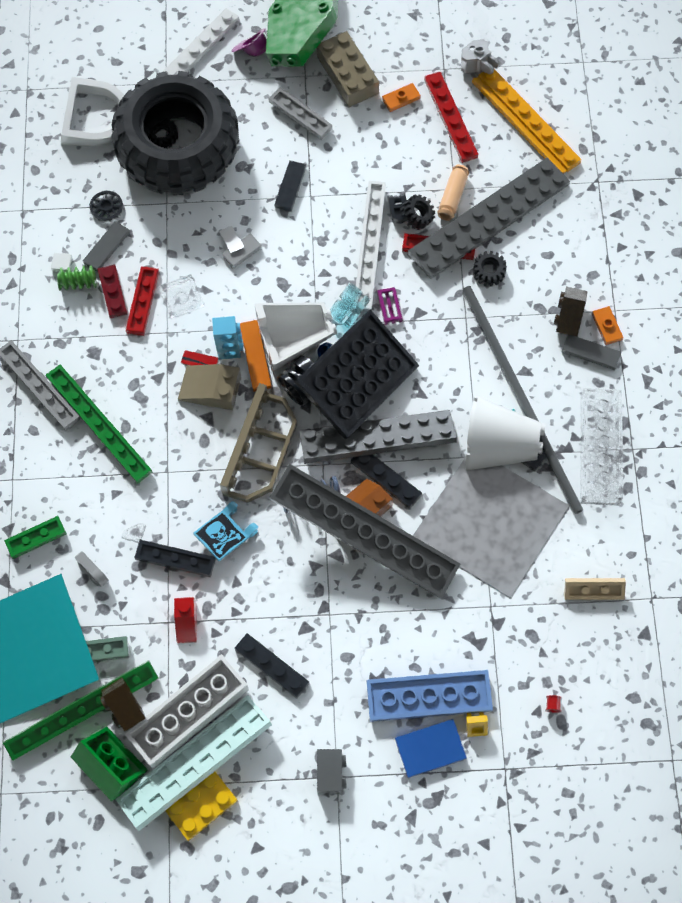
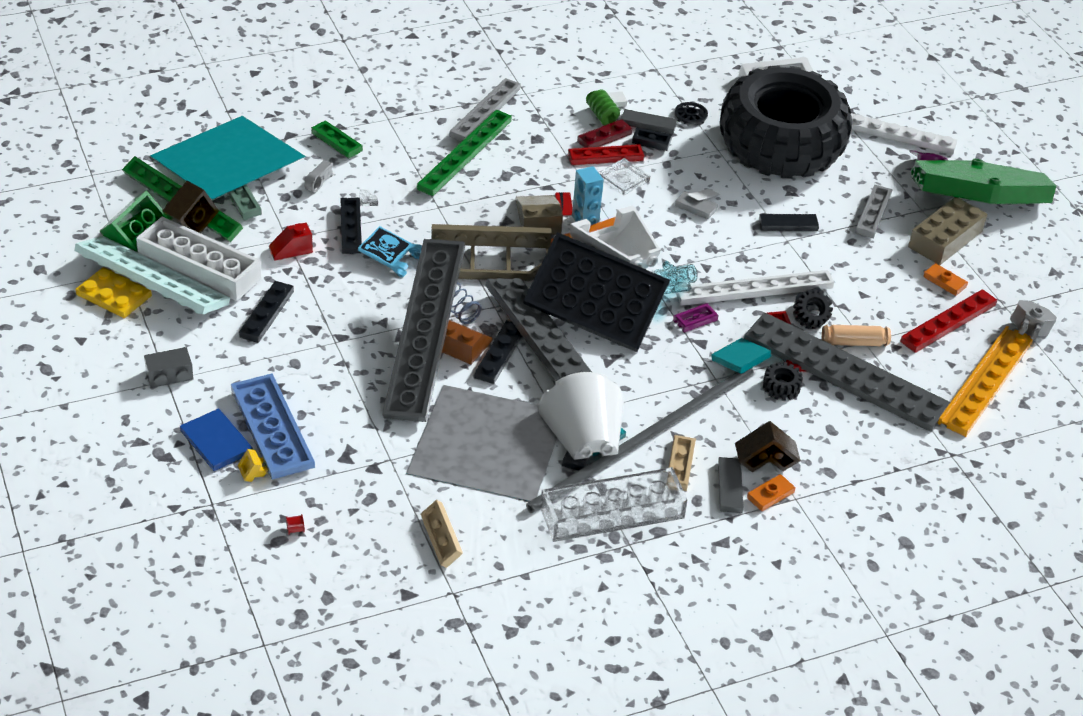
camera: 65 degrees right, 25 degrees down
(137, 253) = (652, 139): none -> black plate
(452, 288) = (741, 355): none -> teal tile
(556, 379) = (681, 458): none -> tan tile

